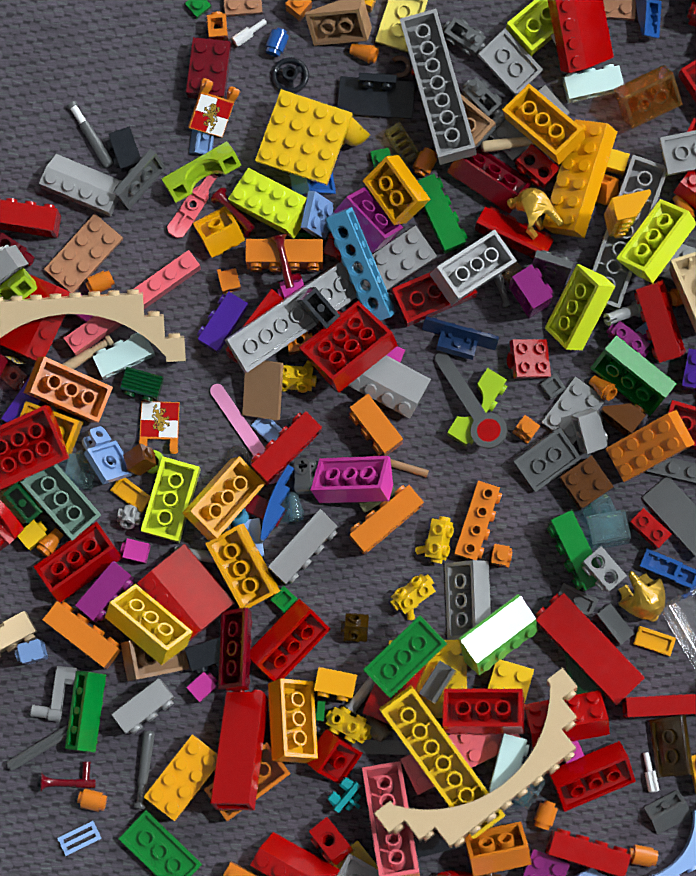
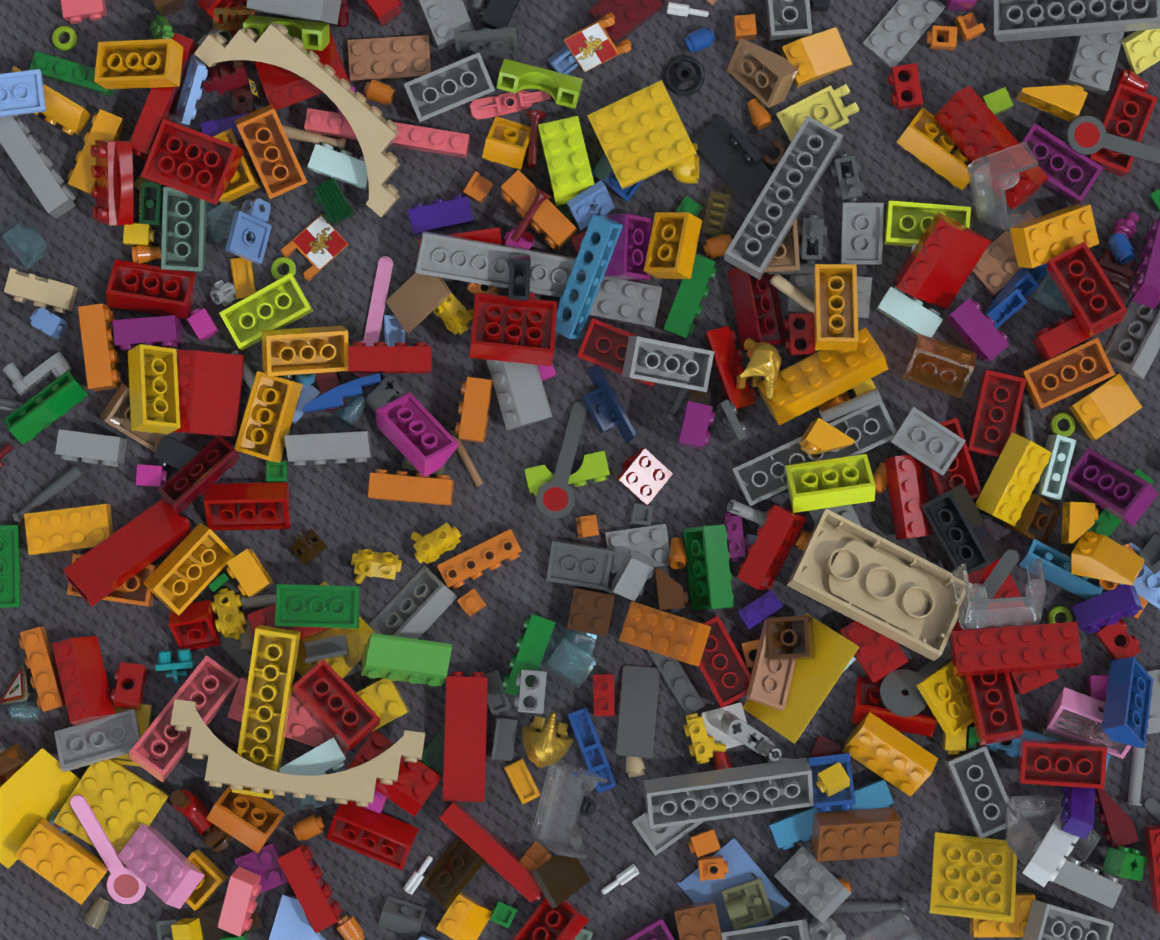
camera: 45 degrees right, 5 degrees up
(140, 459) = (273, 258): reddish brown brick -> none
(144, 232) = (449, 87): none -> light grey brick
(579, 308) = (719, 475): neon yellow slope -> none
(618, 176) = (850, 405): none -> light grey pin
(648, 50) = (978, 330): none -> magenta brick

